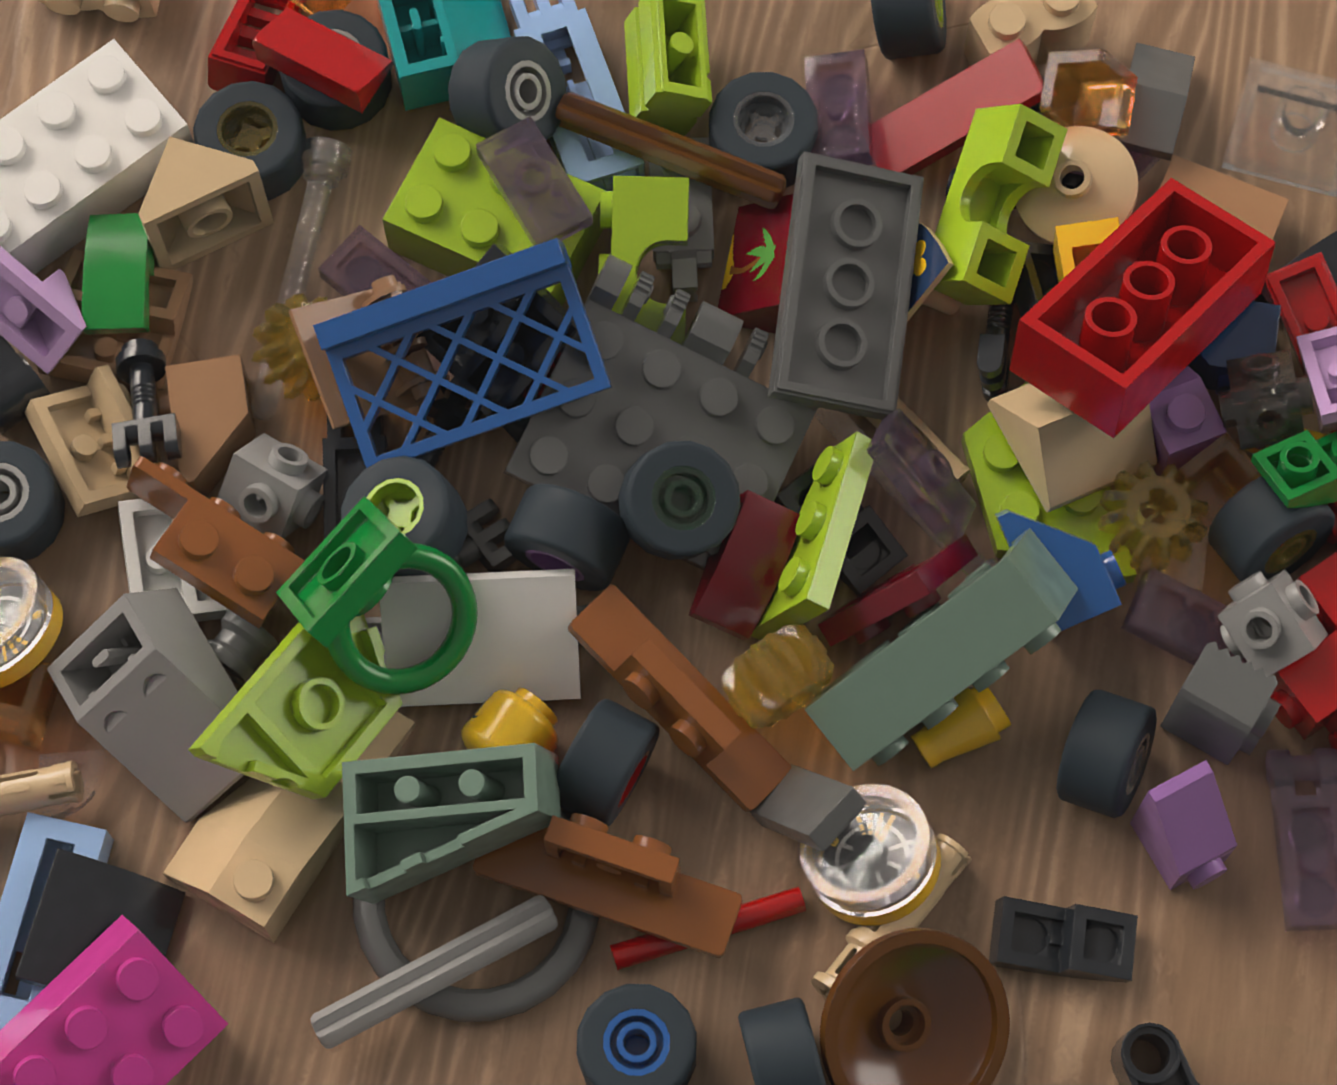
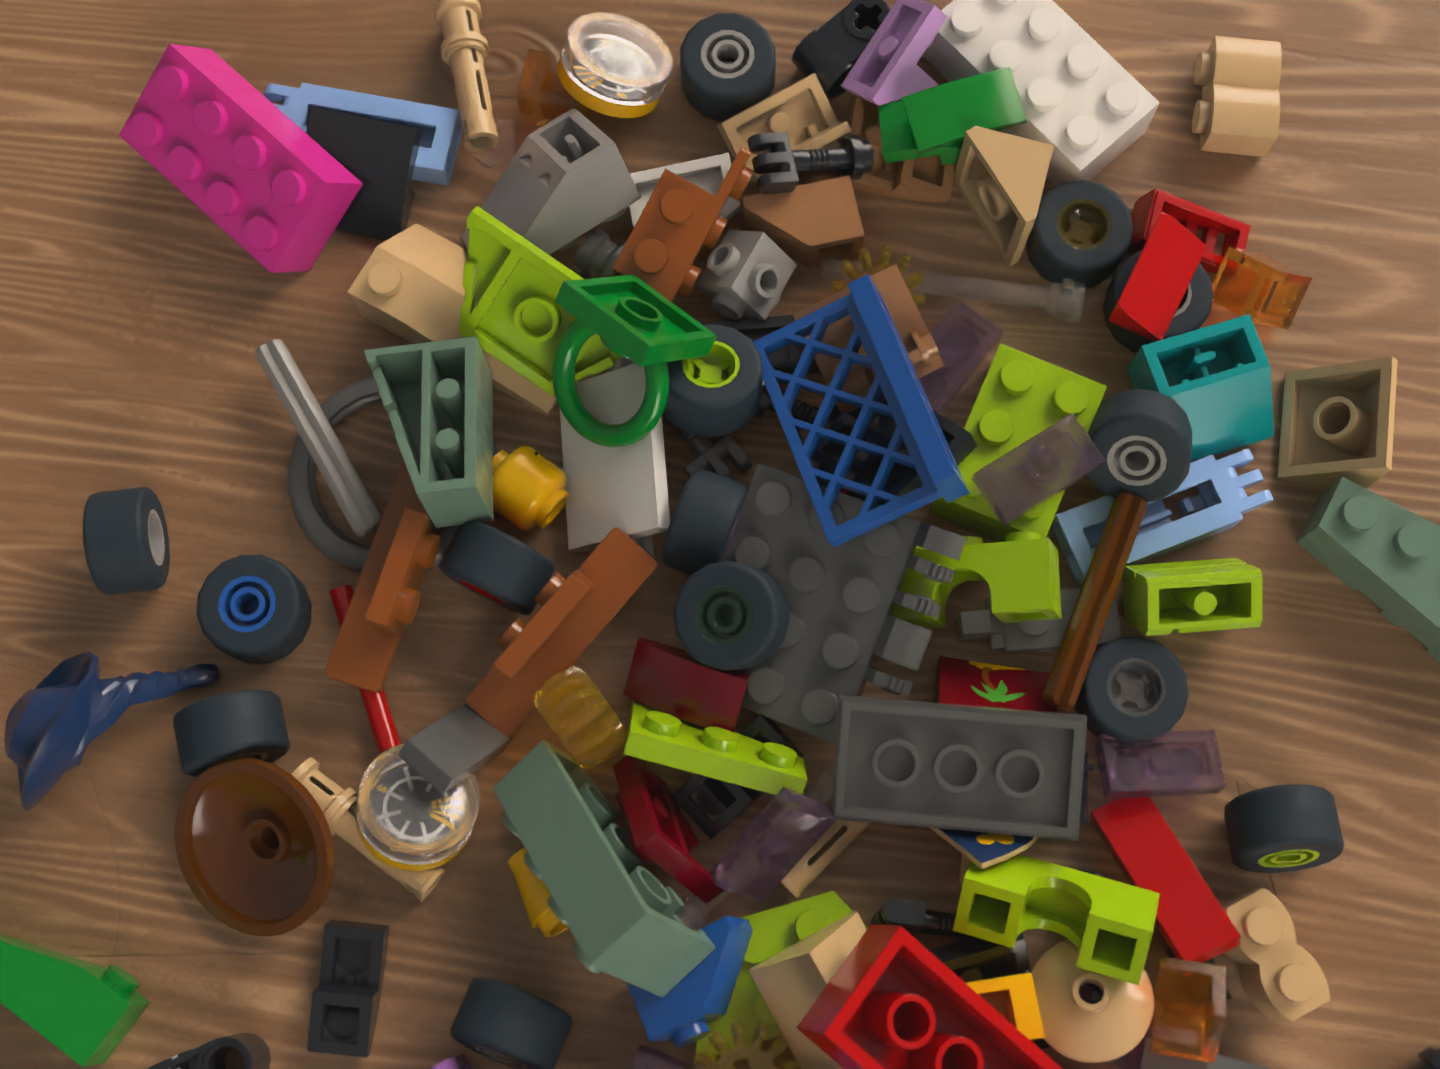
camera: 90 degrees right, 5 degrees up
(109, 233) = (950, 109): none -> green slope

